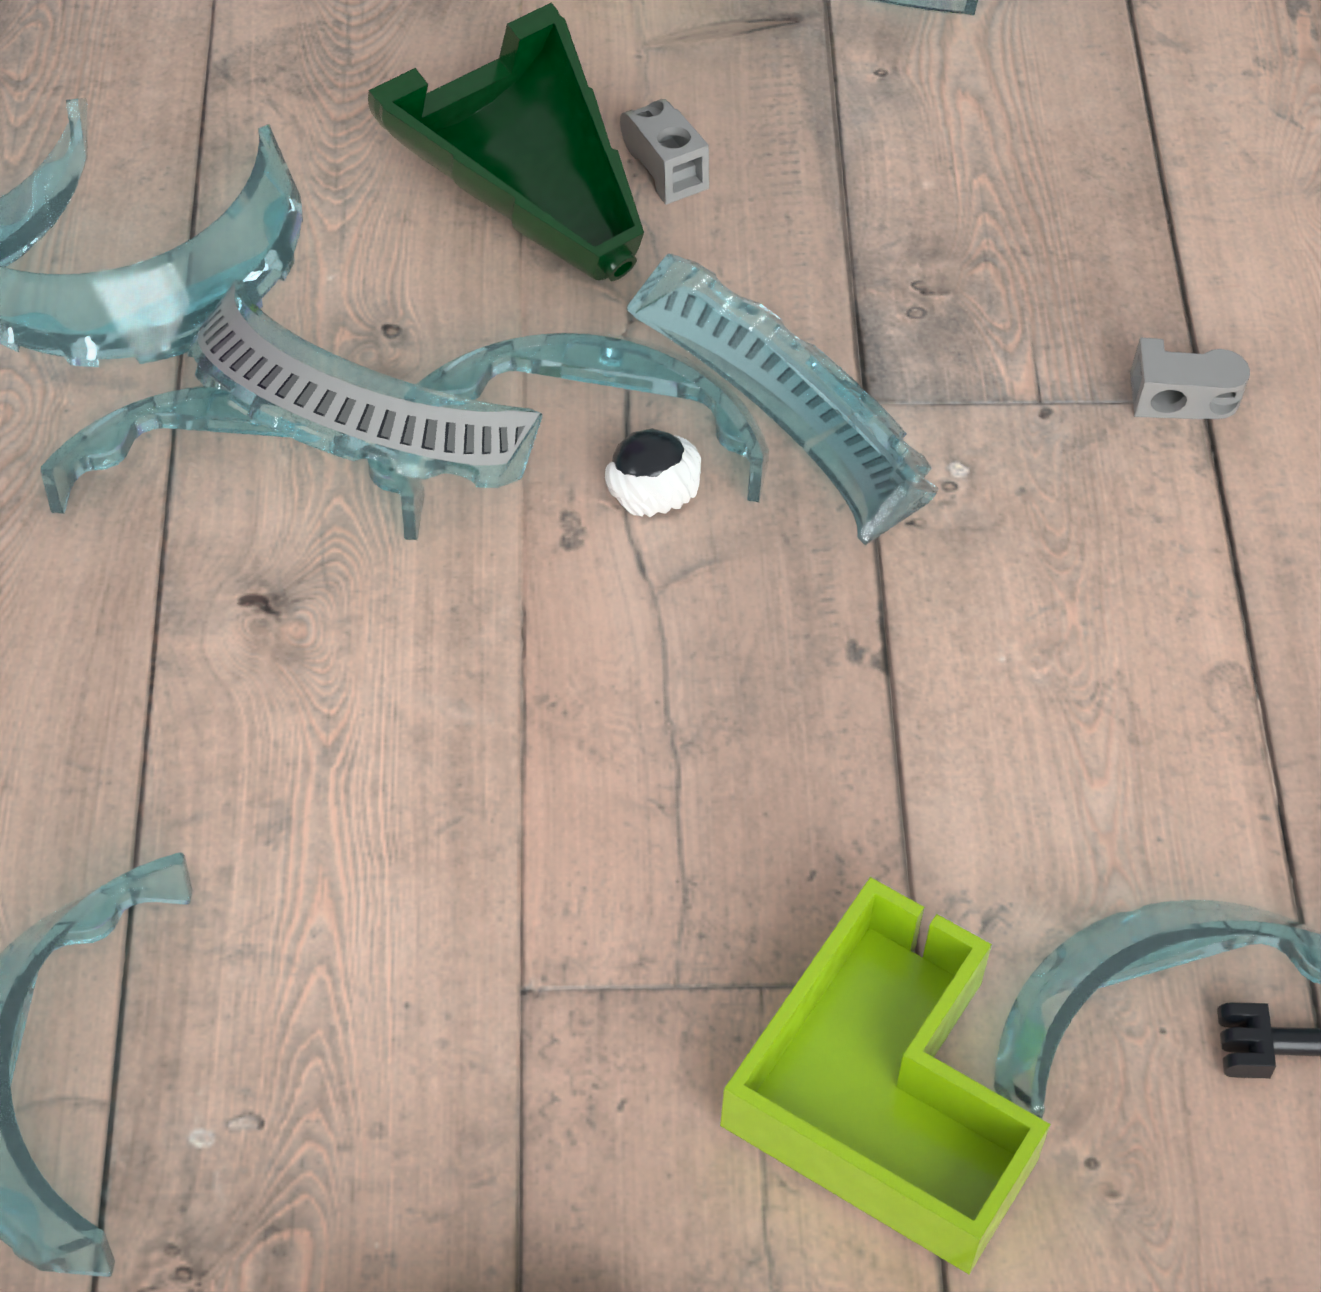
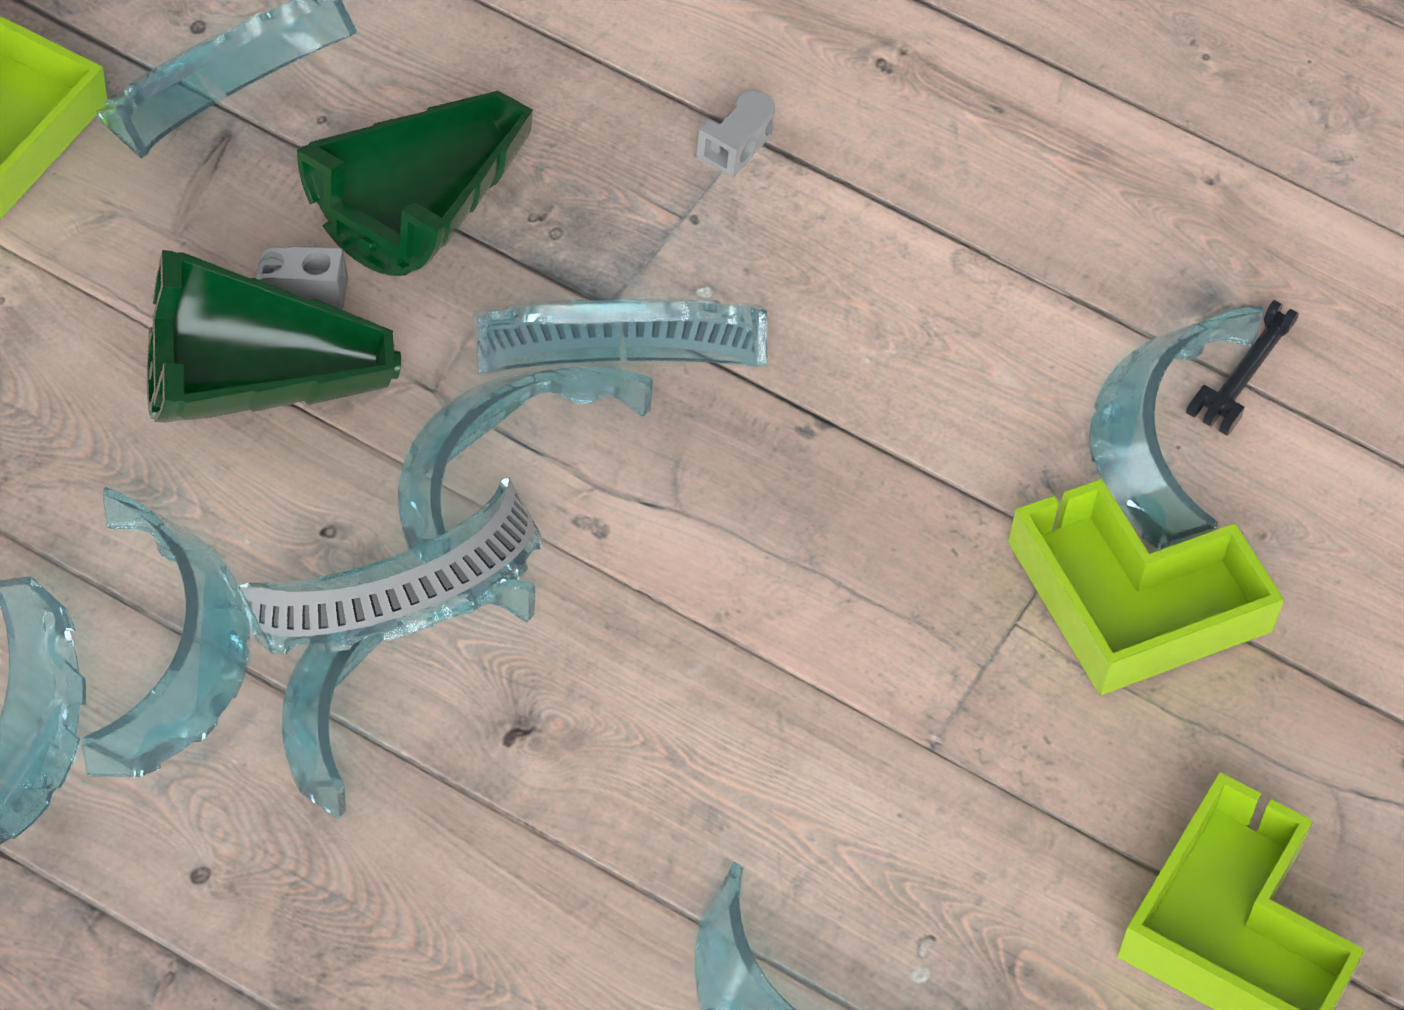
camera: 60 degrees left, 0 degrees up
(653, 472) = (588, 450): hair -> none
(857, 152) = (411, 180): none -> dark green cone

